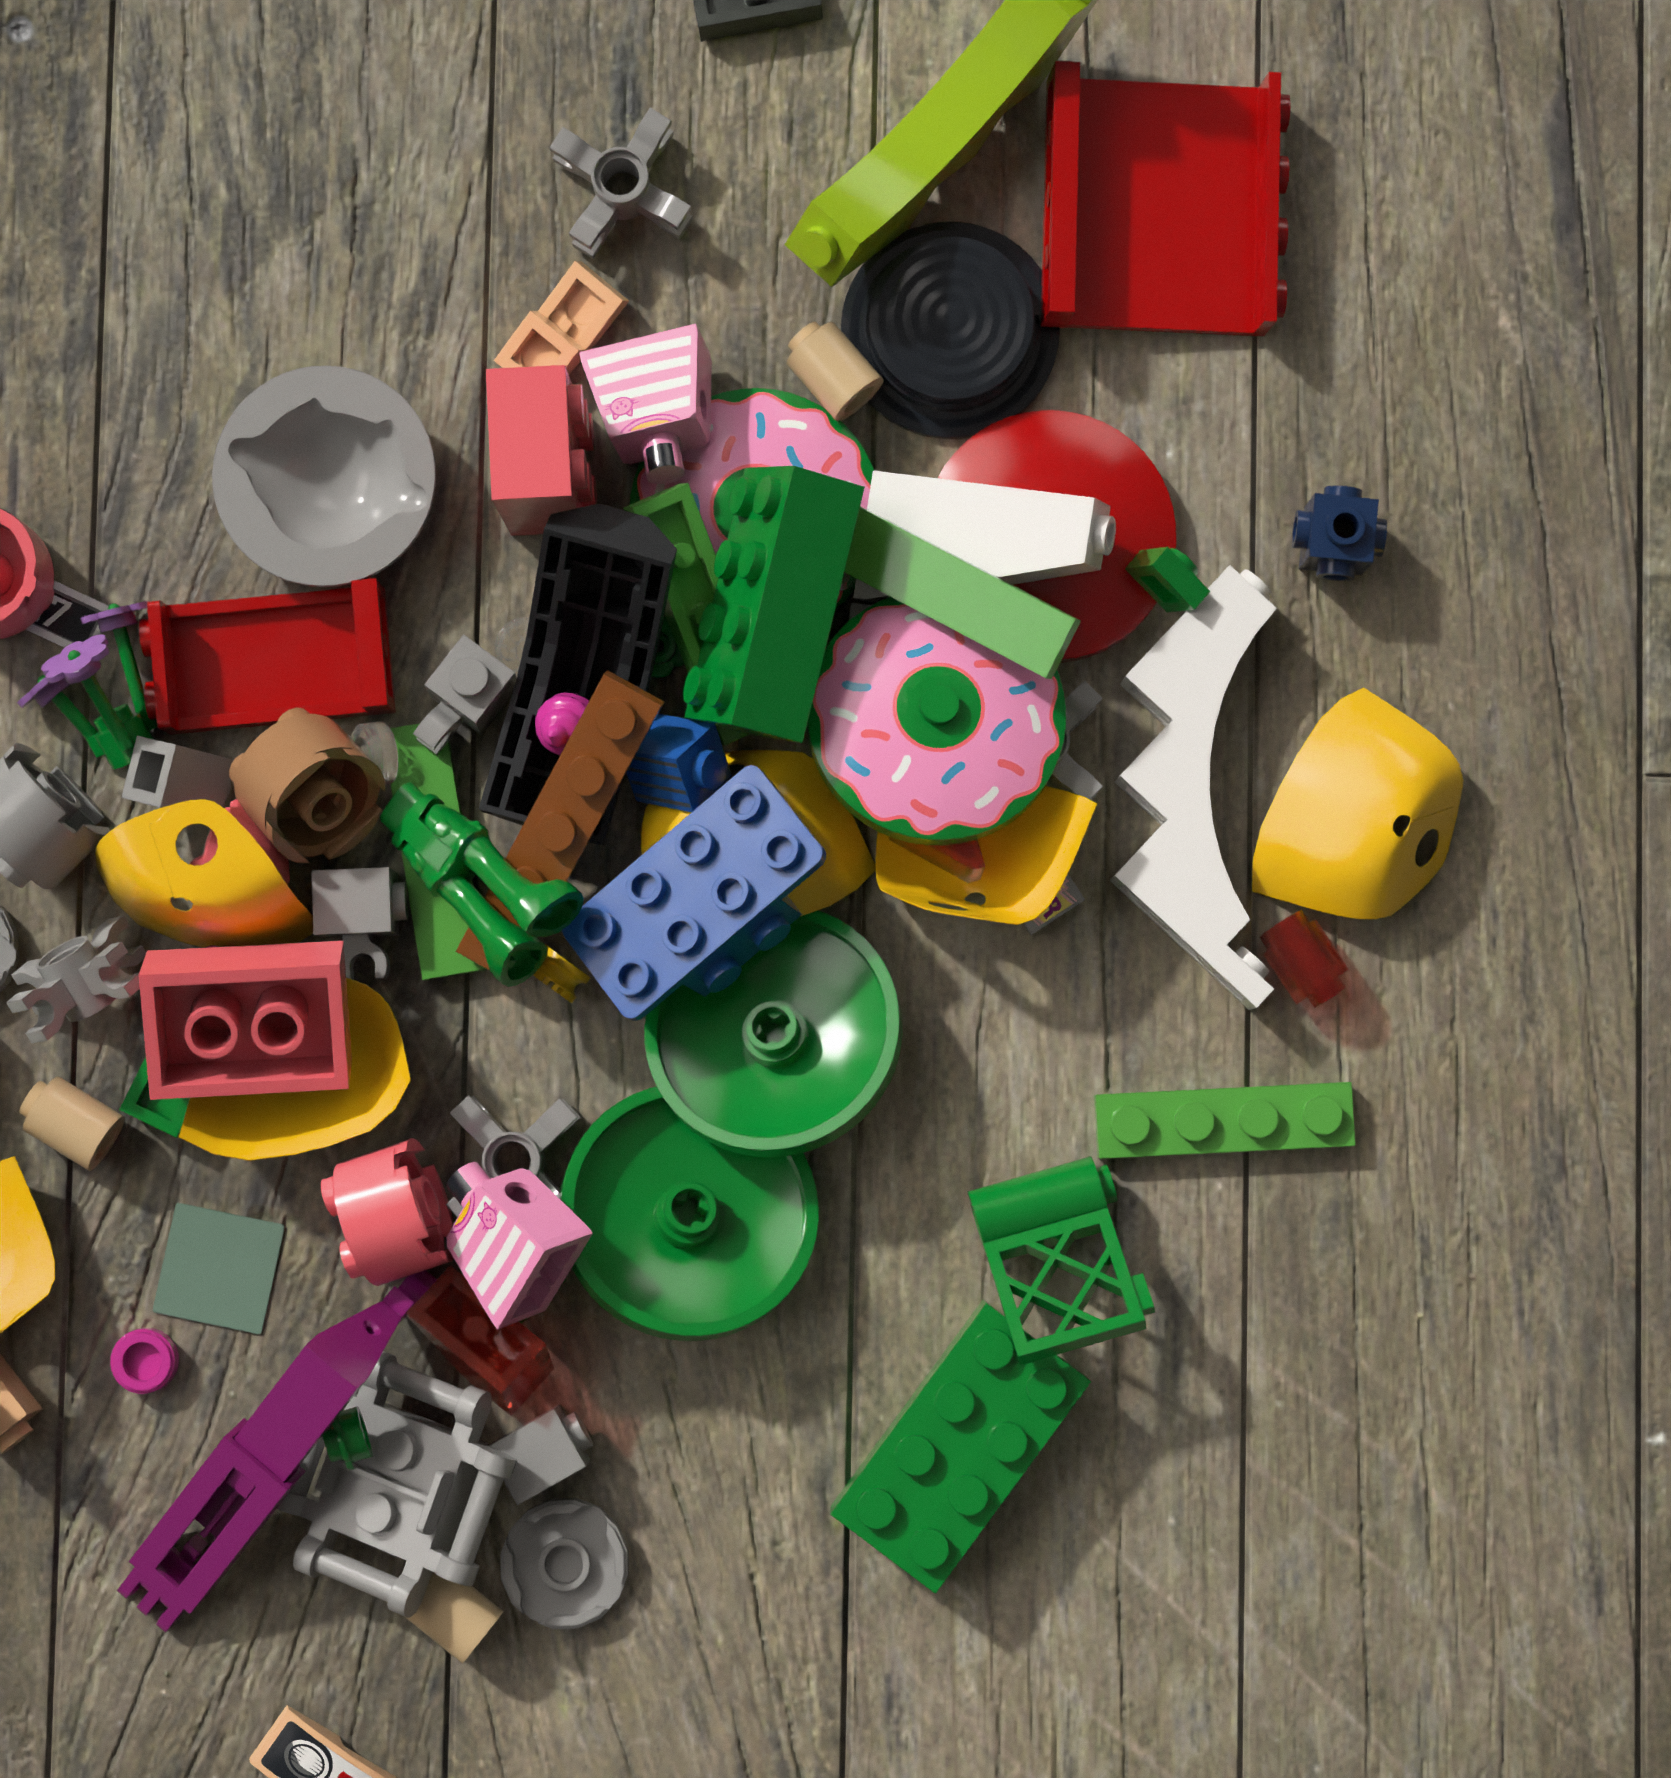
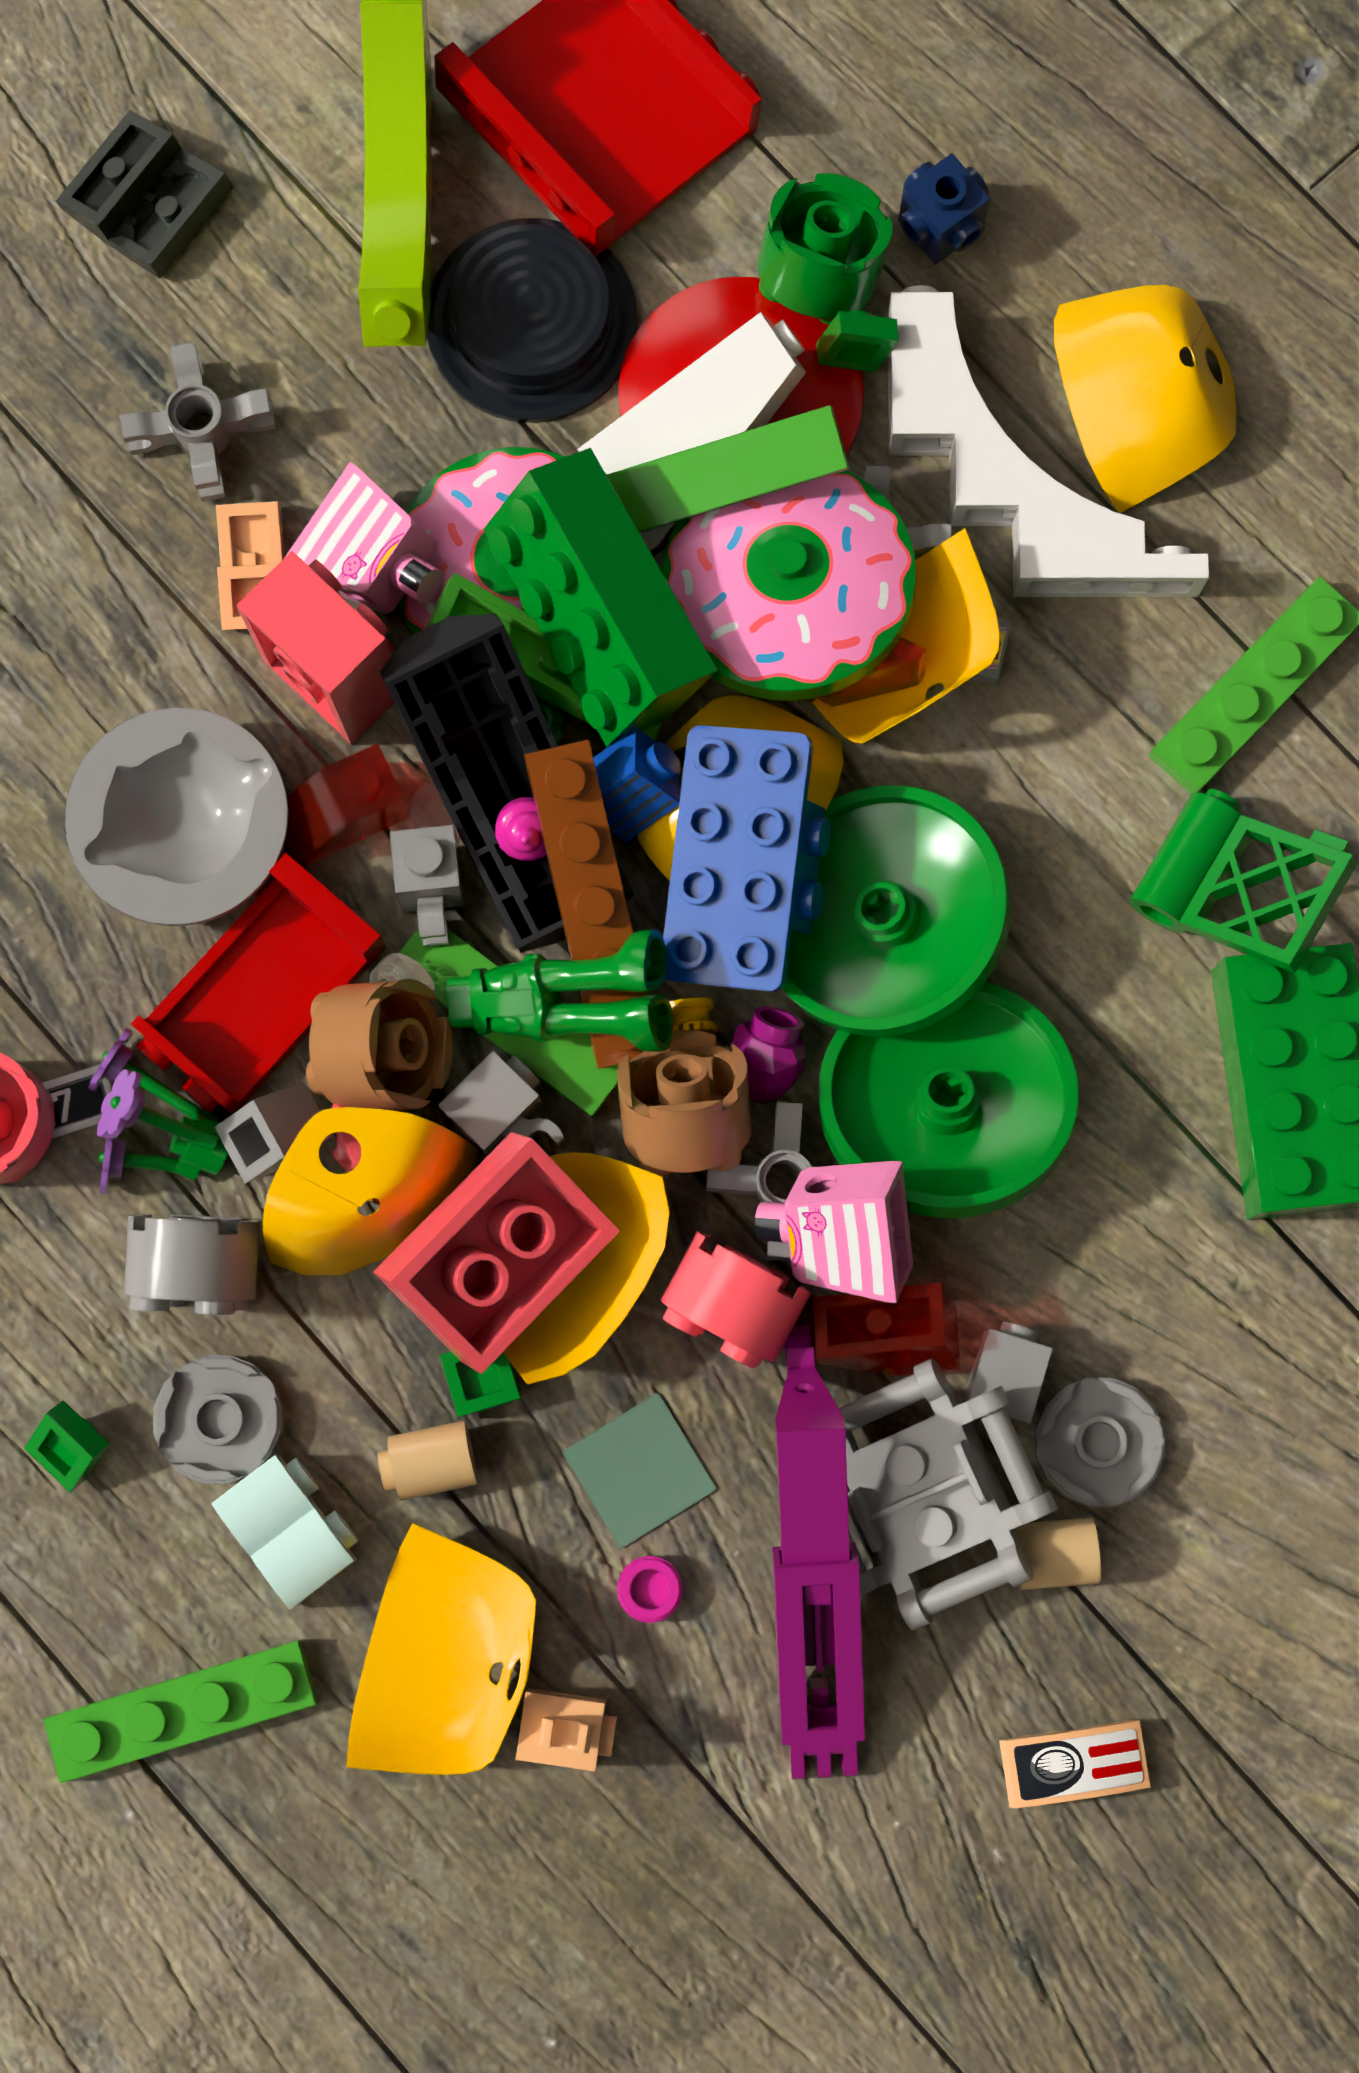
camera: 45 degrees left, 5 degrees down
(77, 979) = (338, 1344): light grey pin -> none
(348, 1438) = (867, 1486): green plate -> none
(457, 579) = (343, 806): none -> clear red slope
(488, 1040) = (685, 1105): none -> medium nougat brick
(592, 1054) = (772, 1052): none -> magenta rock
(833, 369) = (476, 414): tan brick -> none
(1212, 482) = (823, 246): none -> green brick
(1304, 959) = (1205, 521): clear red brick -> none

